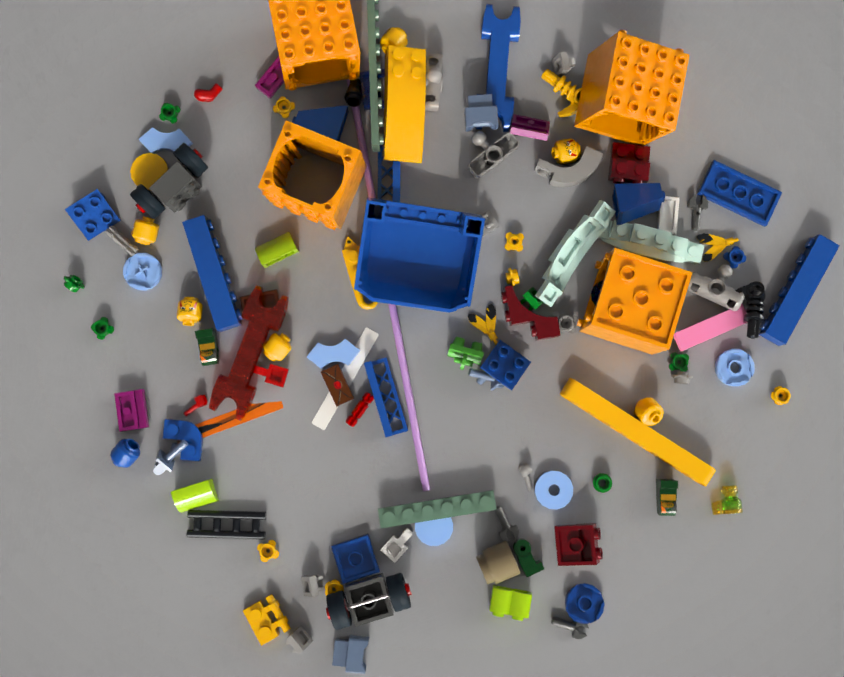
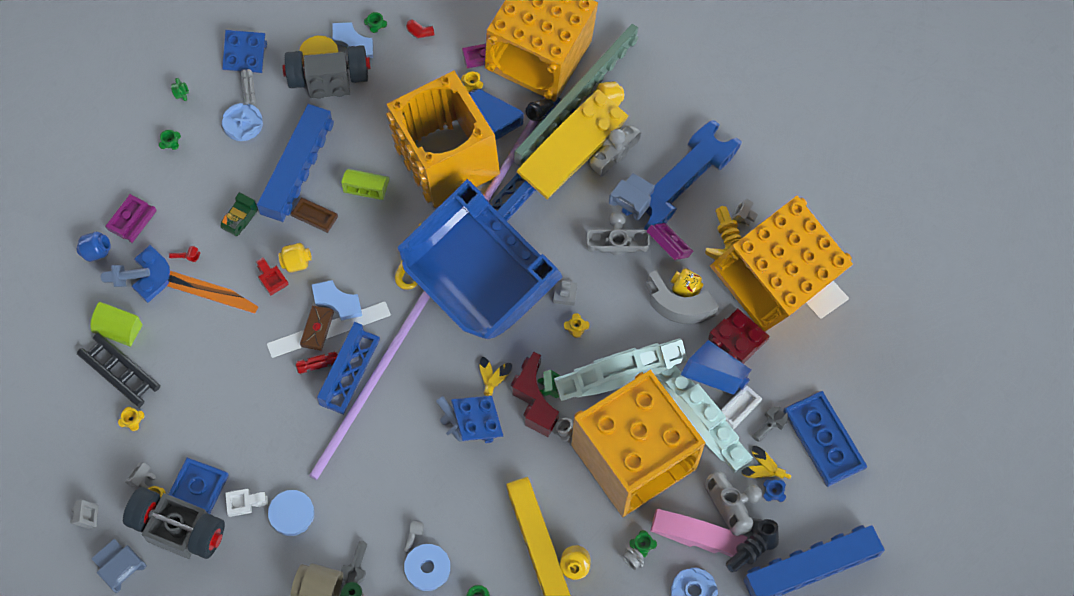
camera: 40 degrees right, 20 degrees down
(145, 230) = (273, 92): yellow head -> none
(189, 311) = (250, 176): yellow head -> none
(237, 383) = (237, 260): clear red piece -> none
(261, 621) = (69, 474): yellow plate -> none
(437, 509) = (307, 497): sand green plate -> none
(465, 355) = (448, 384): bright green hips -> none
(512, 277) = (548, 352): yellow plate -> none

